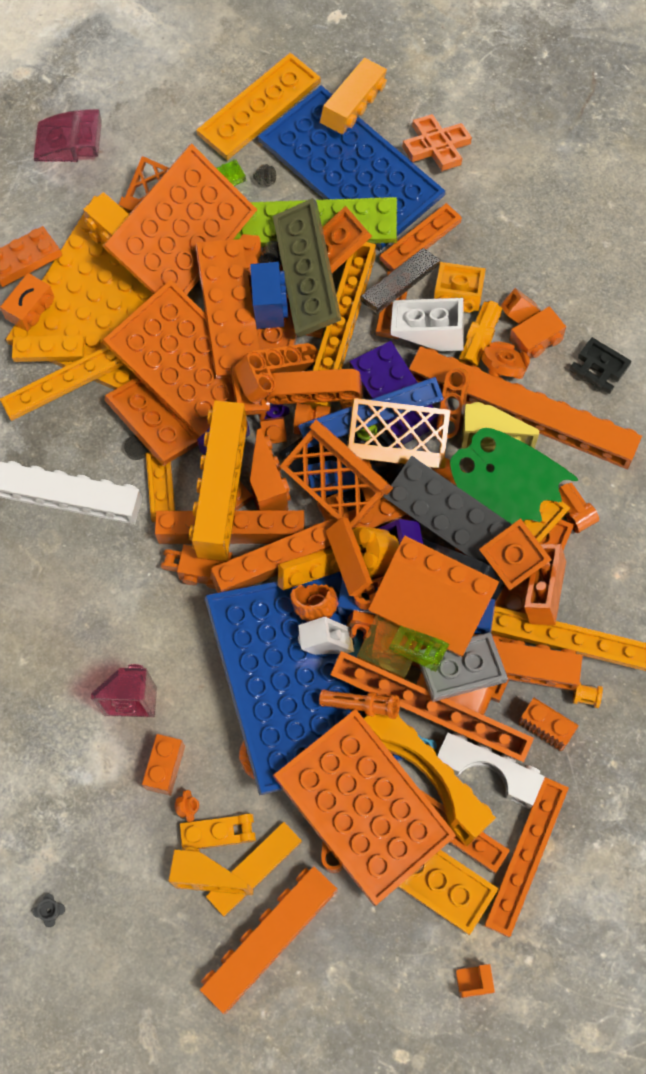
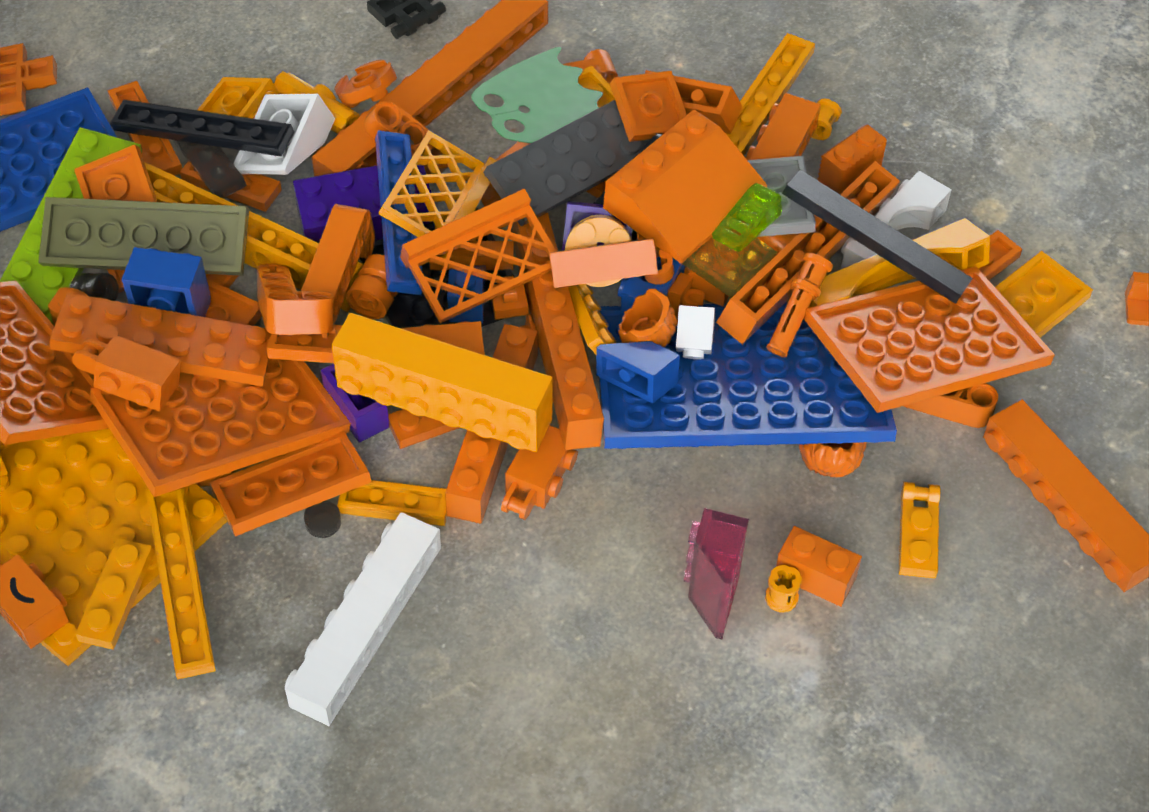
camera: 80 degrees left, 15 degrees down
(41, 910) = (995, 743): dark grey plate -> none
(140, 737) = (787, 586): none -> light orange bush
(185, 296) = (130, 370): none -> orange brick
(187, 806) = (879, 552): orange plate -> none
(198, 872) = (977, 543): light orange slope -> none
(258, 866) = (976, 498): light orange tile -> none
(274, 607) = (639, 368): none -> blue slope
(418, 270) = (202, 127): none -> black tile
(440, 749) = (877, 236): none -> tile
(486, 416) = (454, 113): light yellow slope -> none
(519, 306) = (295, 56): orange panel -> none
(526, 858) = (1013, 222): orange plate -> none
(538, 333) = (338, 47): orange brick -> none

